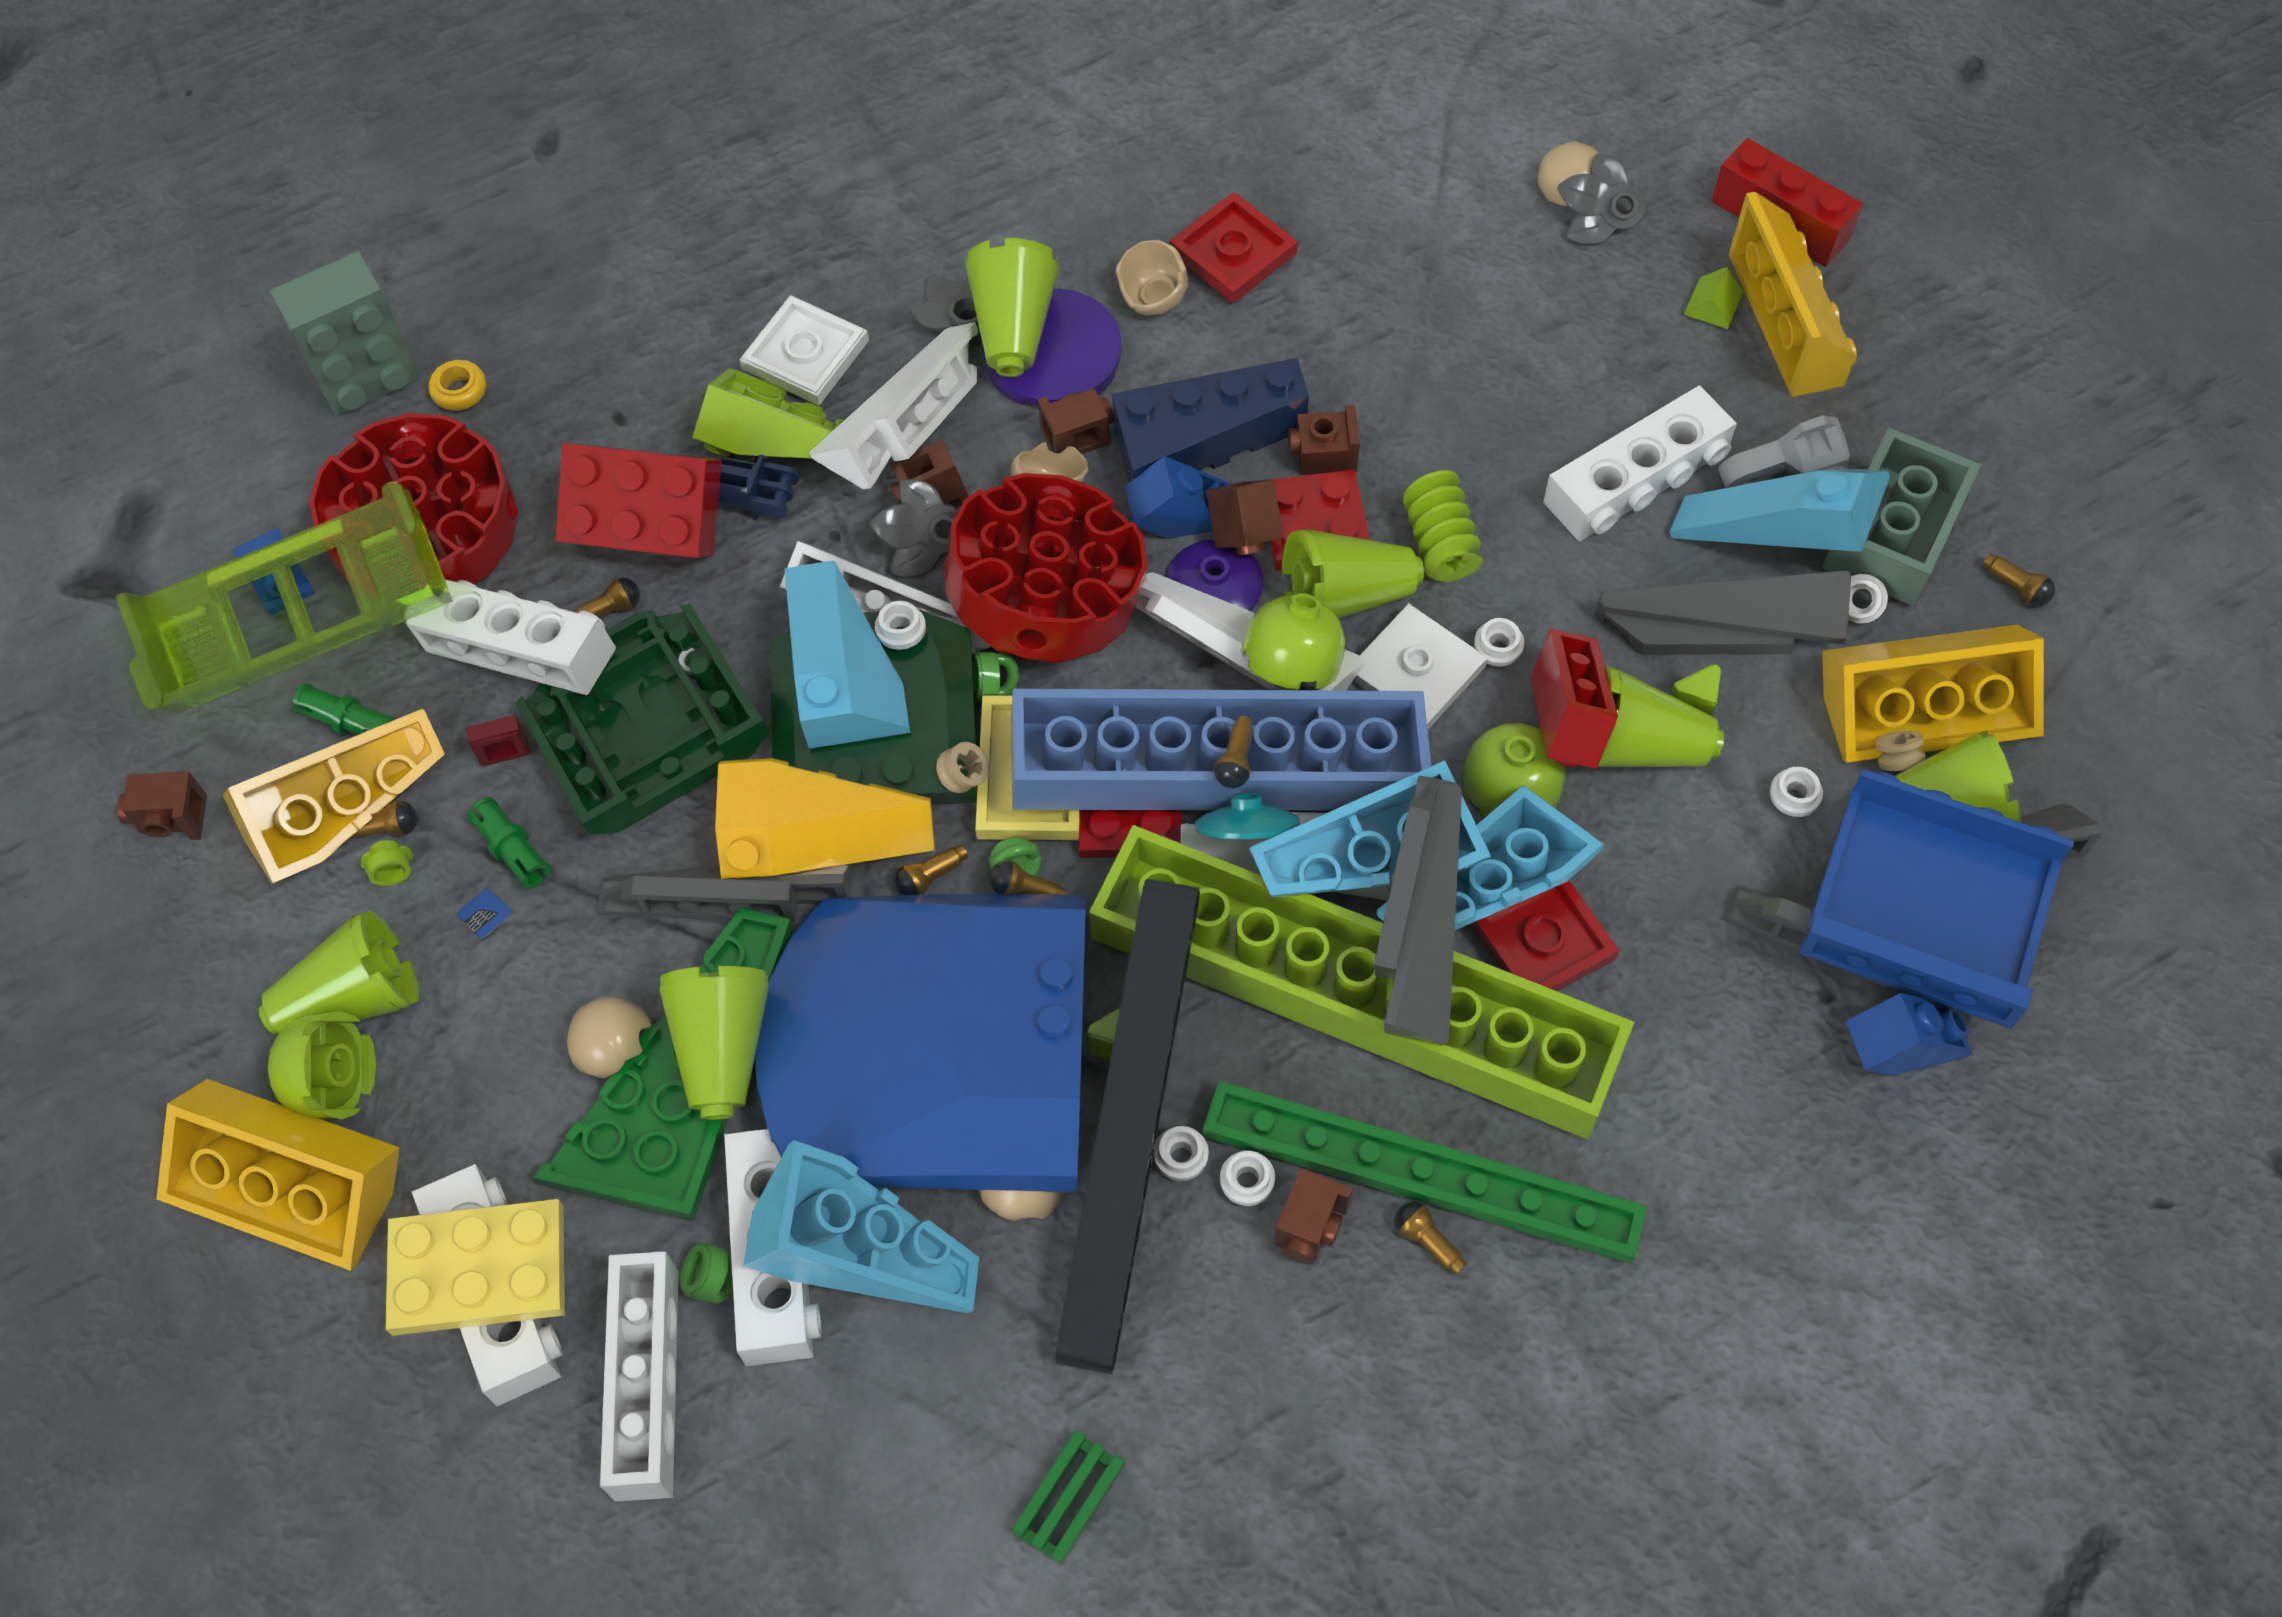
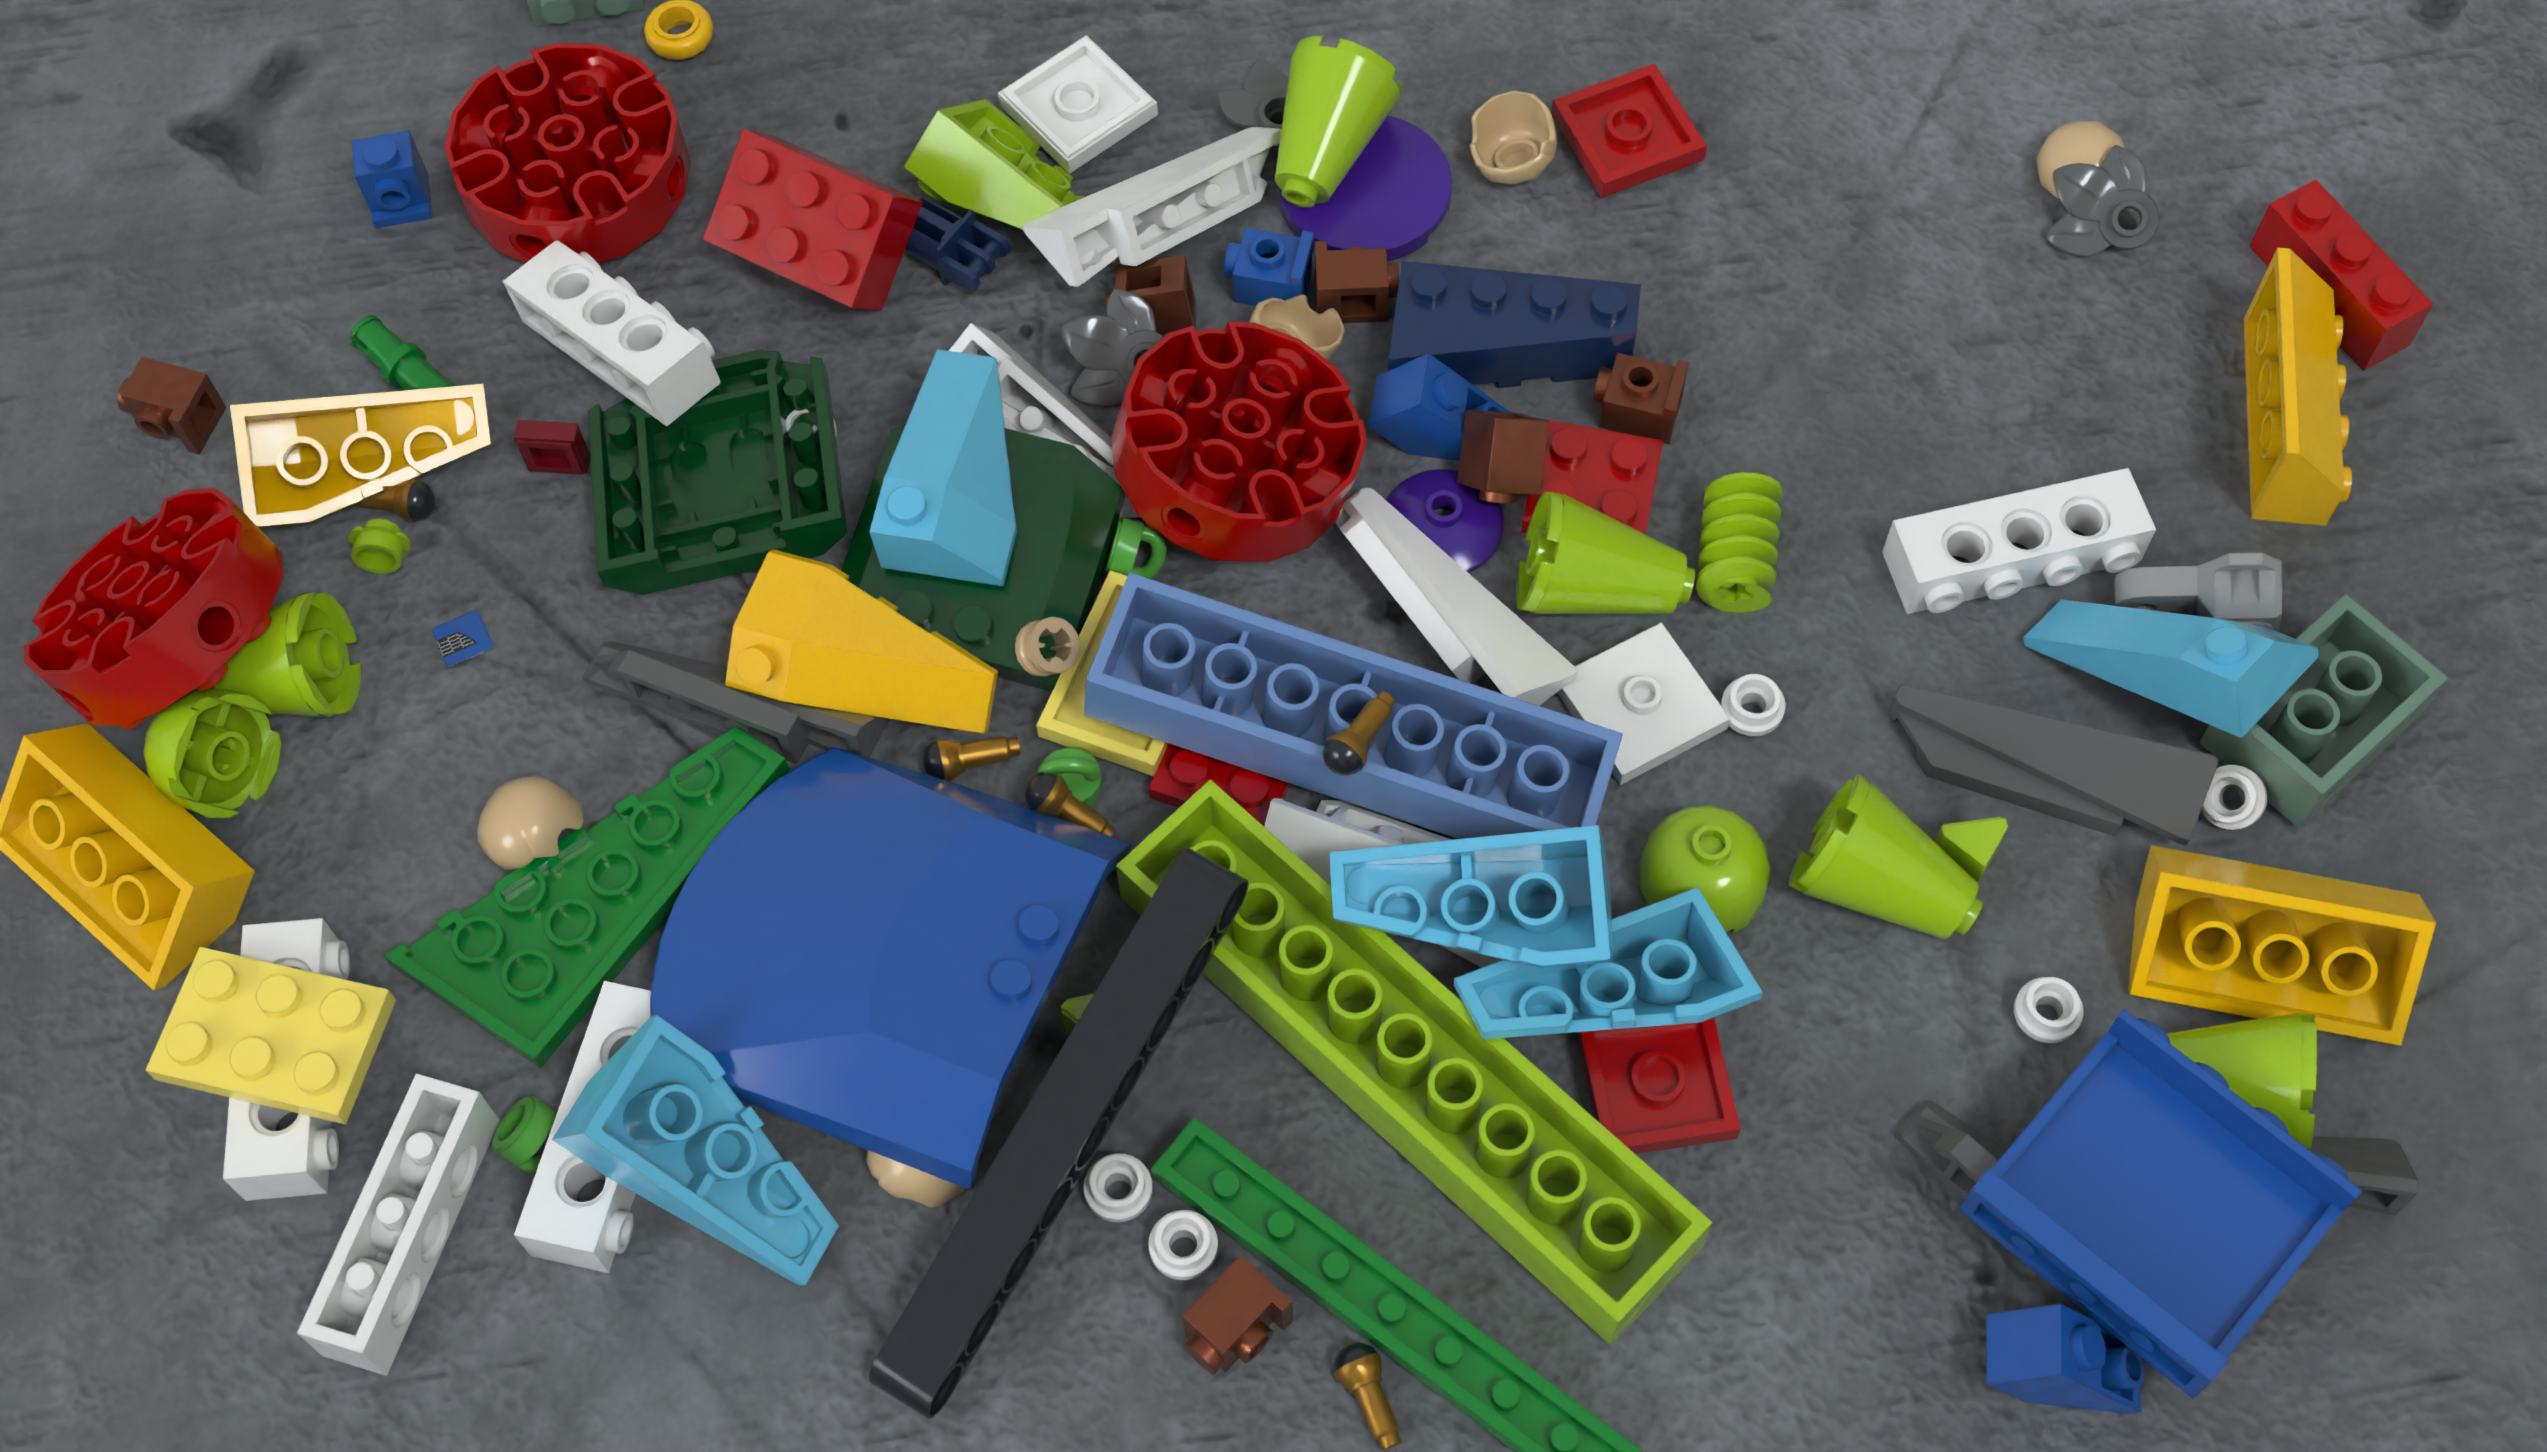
camera: 20 degrees right, 0 degrees up
(190, 635) = (269, 219): clear neon green piece -> none
(235, 968) = (156, 609): none -> red brick
(509, 842) = (517, 567): green pin -> none
(619, 596) = (756, 324): pearl gold piece -> none
(715, 1033) = (637, 861): lime cone -> none
(900, 615) = (1039, 444): white plate -> none
(1007, 429) = (1270, 265): none -> blue brick
(1246, 819) = (1346, 818): teal dish -> none
(1295, 642) = (1492, 626): lime cylinder -> none
(1420, 916) = (1495, 1001): dark grey wedge -> none
(1573, 699) = (1803, 803): red brick -> none
(1715, 298) = (2202, 368): lime slope -> none
(1900, 750) = (2199, 1001): tan bush -> none
(2033, 588) = (2464, 856): pearl gold piece -> none

